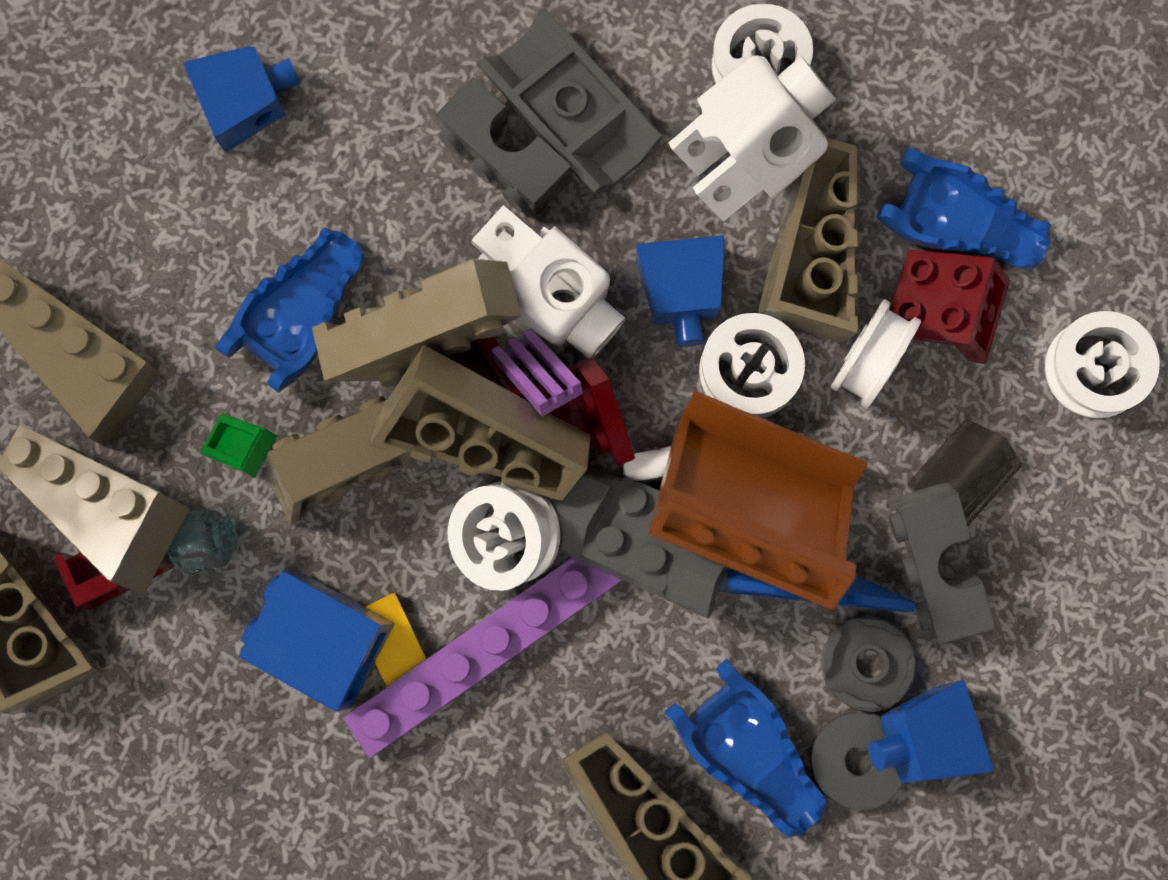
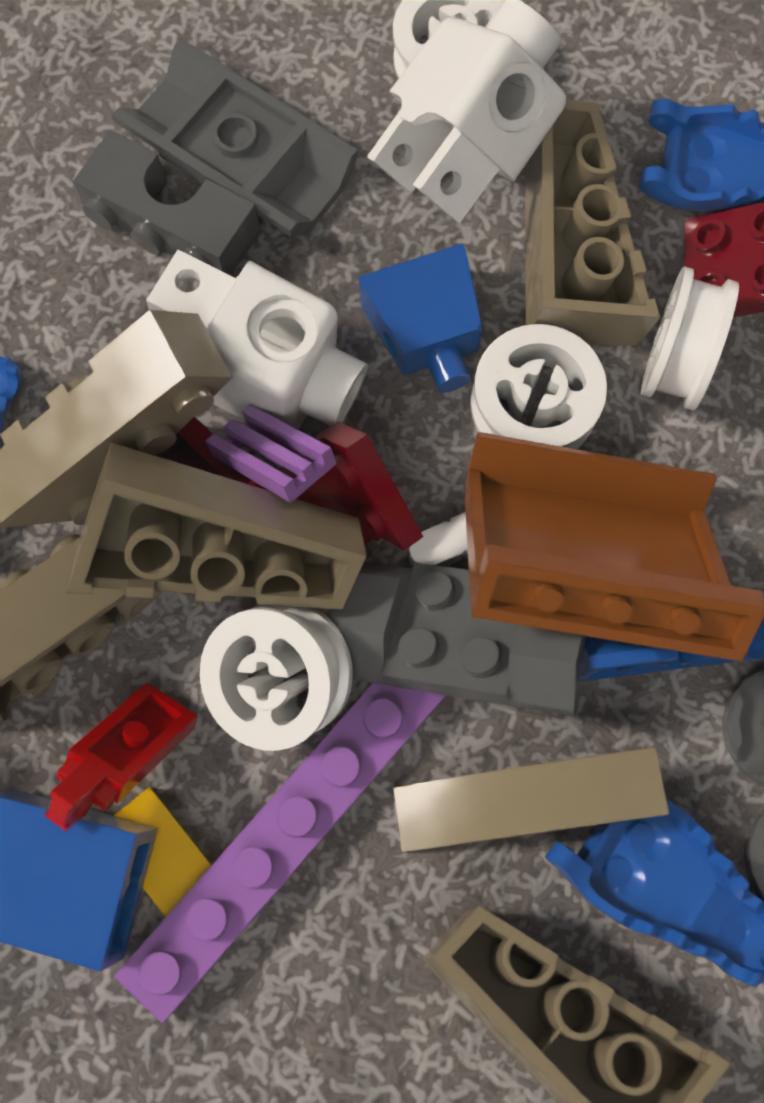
camera: 15 degrees left, 5 degrees down
(380, 564) = (118, 754): none -> red hinge
(663, 669) = (531, 800): none -> dark tan slope

